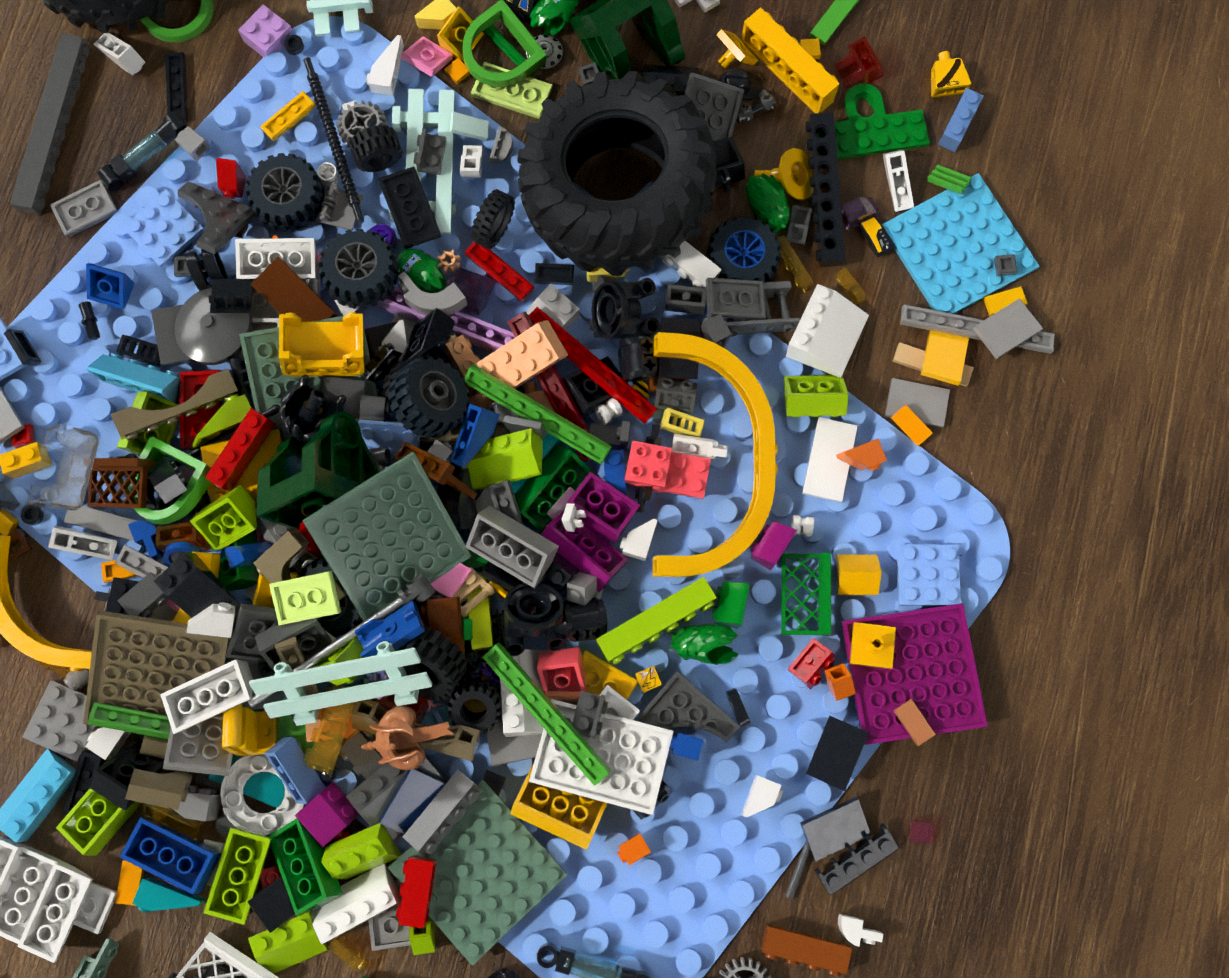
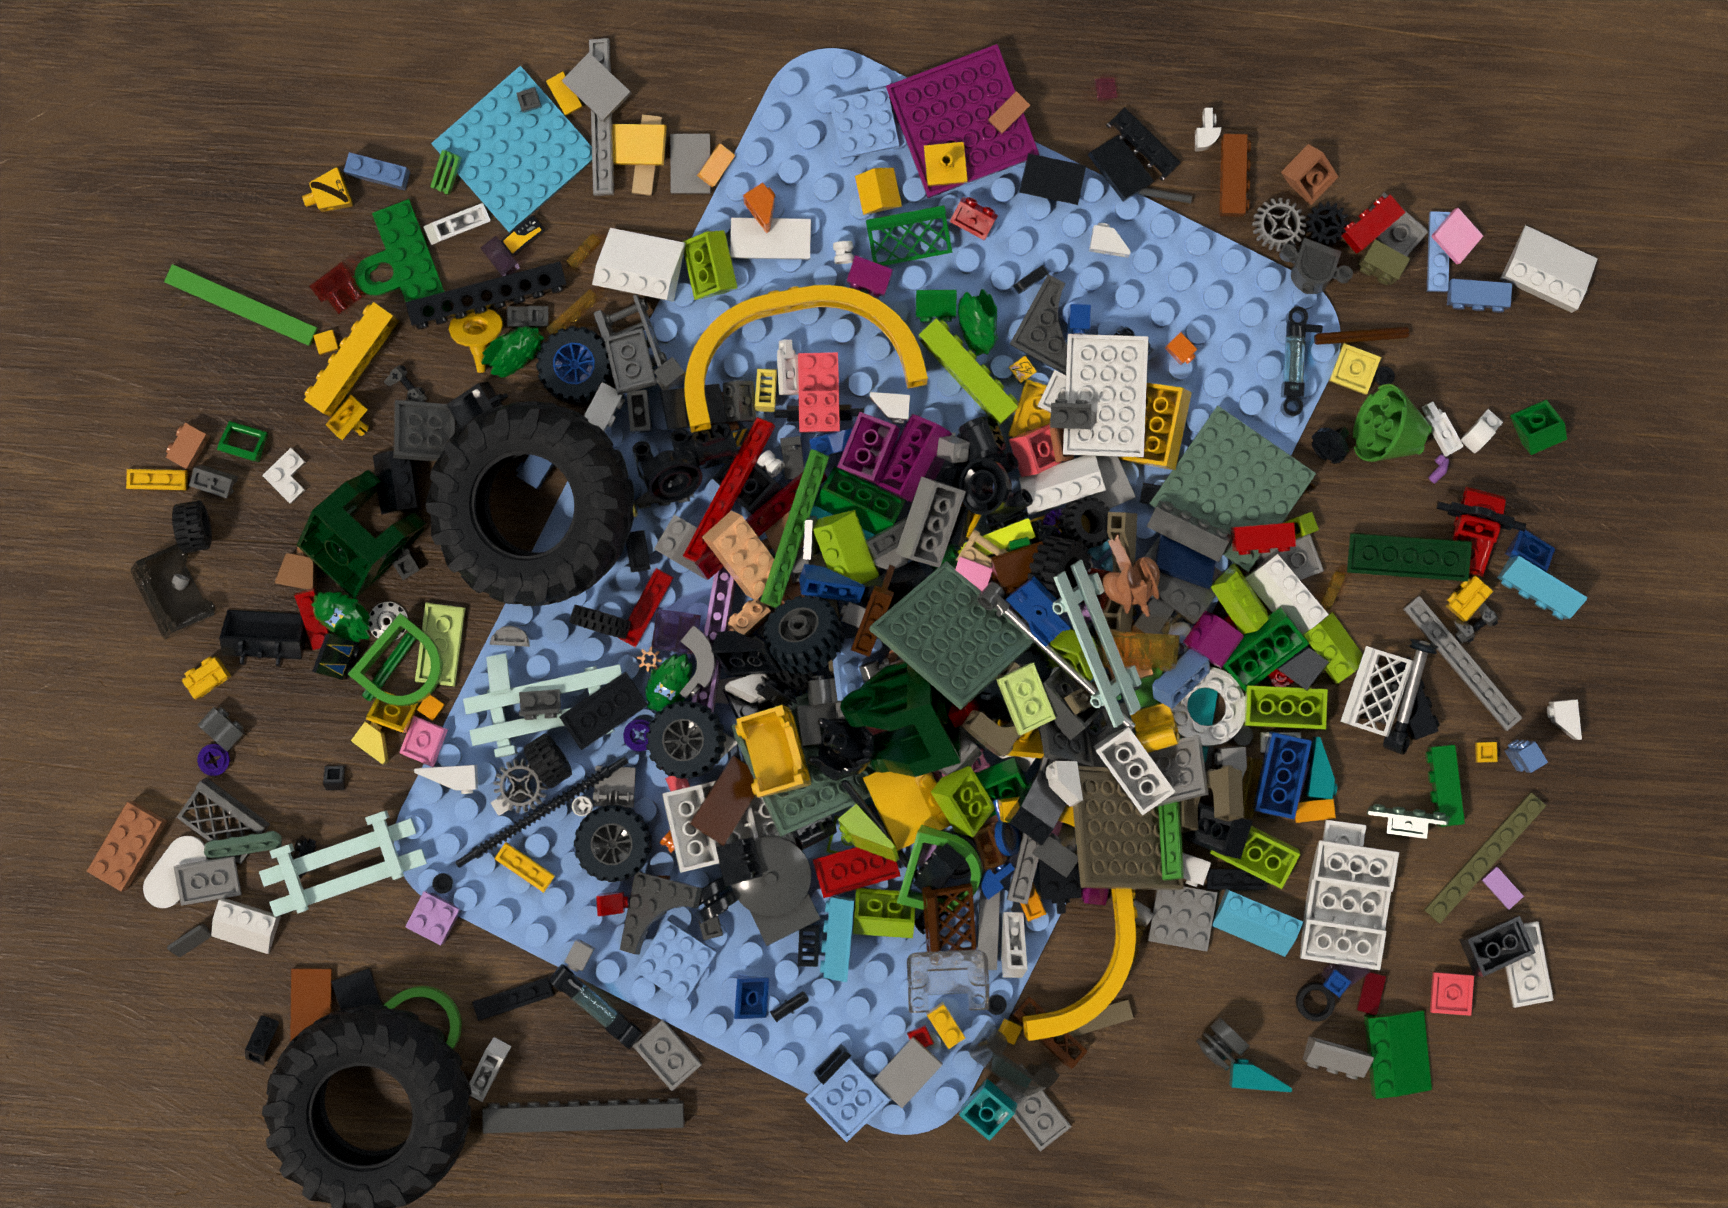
camera: 100 degrees left, 10 degrees up
(134, 420) = (835, 854): dark tan arch -> none
(240, 450) = (895, 804): red brick -> none
(245, 554) = (991, 770): blue brick -> none
(471, 161) = (536, 662): white brick -> none
(546, 714) = (1079, 453): bright green plate -> none
(560, 505) = (872, 489): sticker -> none
(571, 517) = (886, 473): white tile -> none
(745, 80) = (380, 407): black piece -> none
(840, 682) = (986, 188): orange brick -> none

